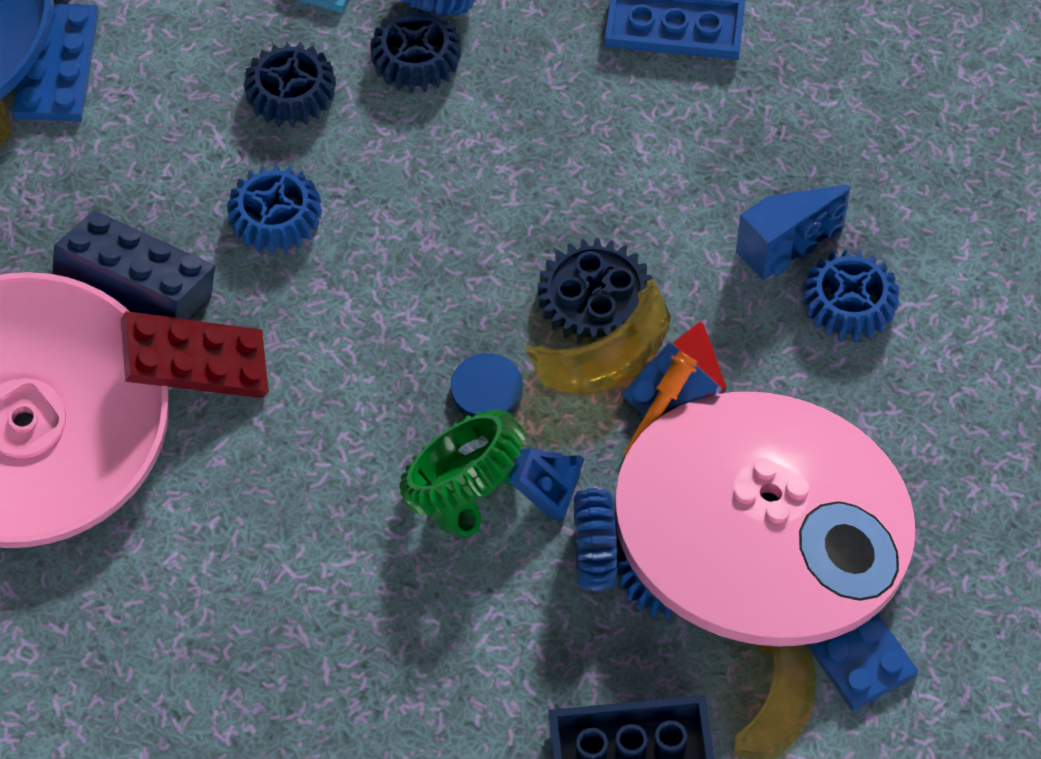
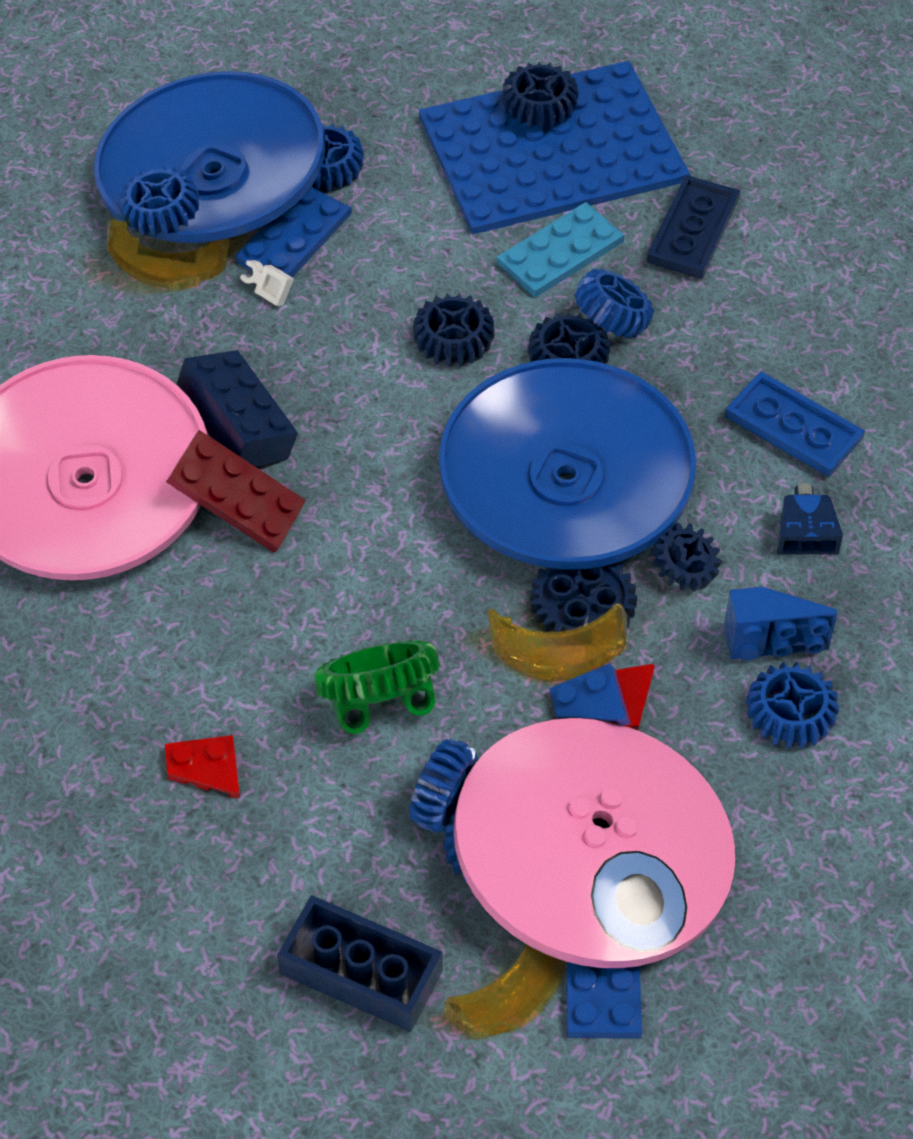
camera: 30 degrees right, 5 degrees down
(72, 123) = (270, 282): none -> white plate
(280, 218) = (375, 423): blue gear -> none
(345, 640) = (204, 763): none -> red wing
(486, 384) = (450, 627): blue tile -> none
(487, 115) = (578, 418): none -> blue dish
(546, 479) = (440, 717): blue wing -> none
(662, 201) = (686, 557): none -> dark blue gear
(669, 388) = (586, 697): orange pin -> none
(752, 114) = (808, 524): none -> dark blue torso

